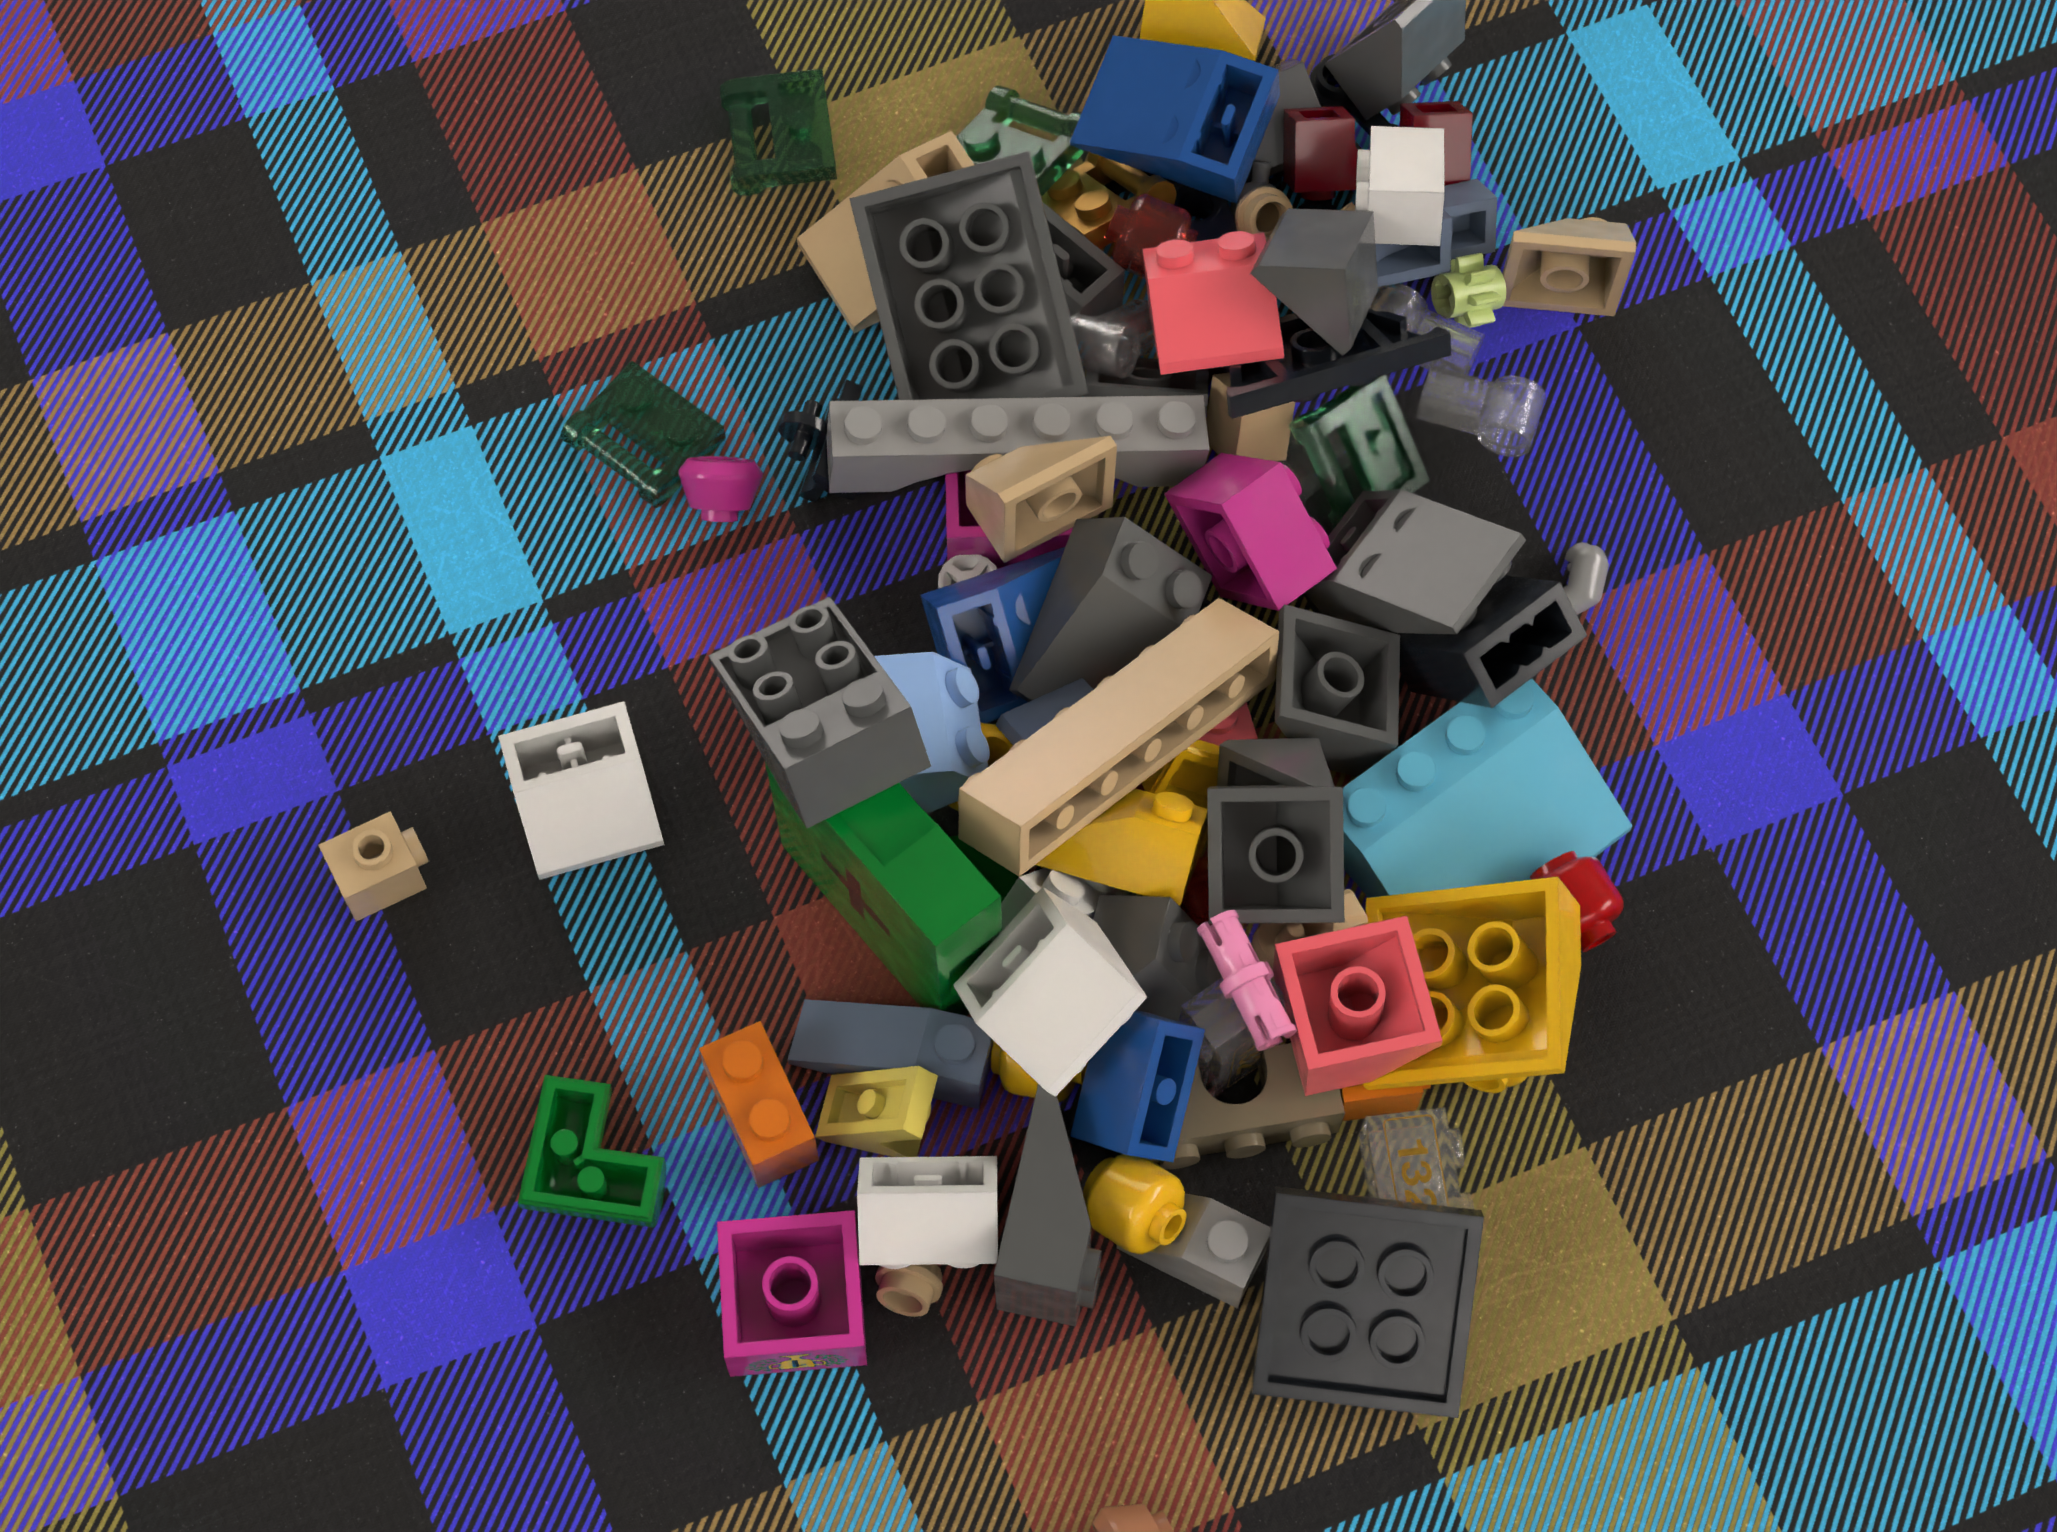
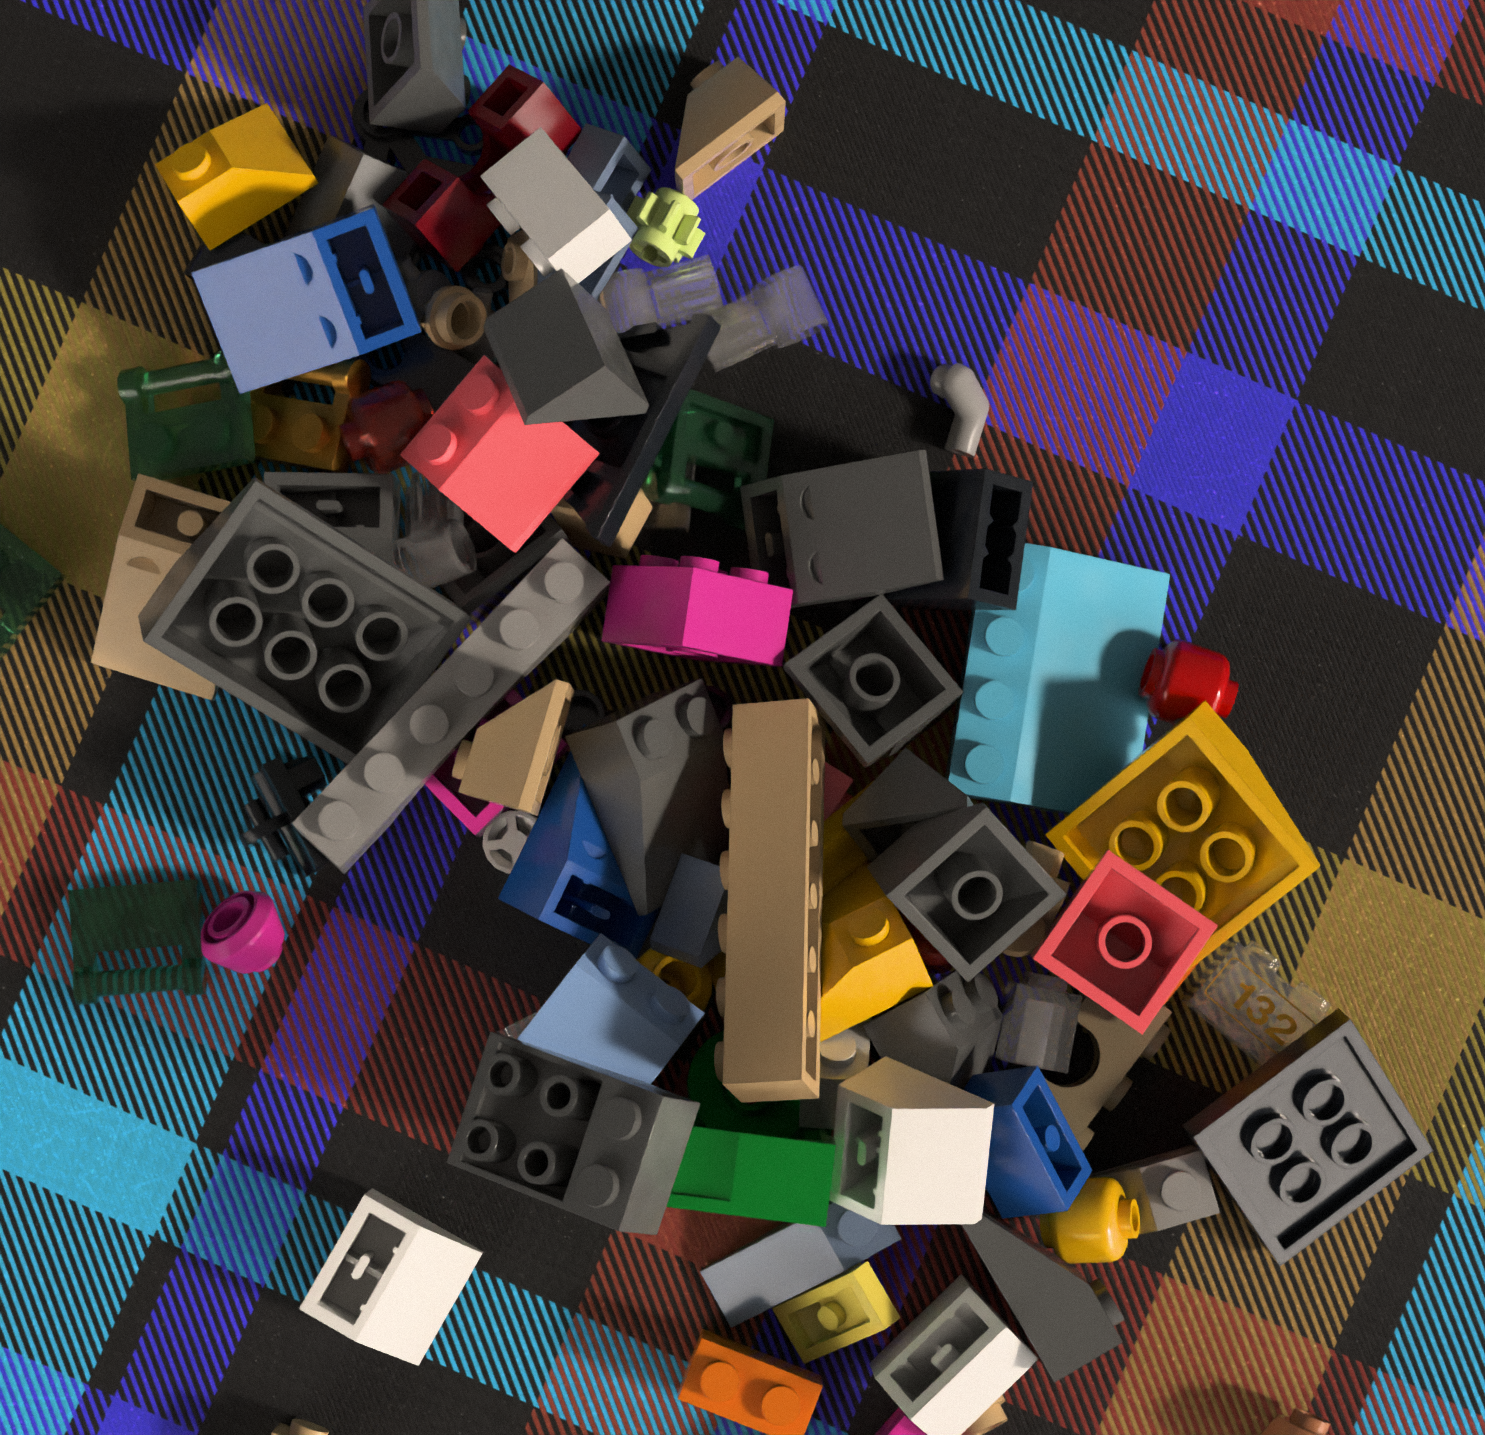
camera: 45 degrees left, 20 degrees up
(1246, 980) = (1038, 1006): bright pink pin -> none

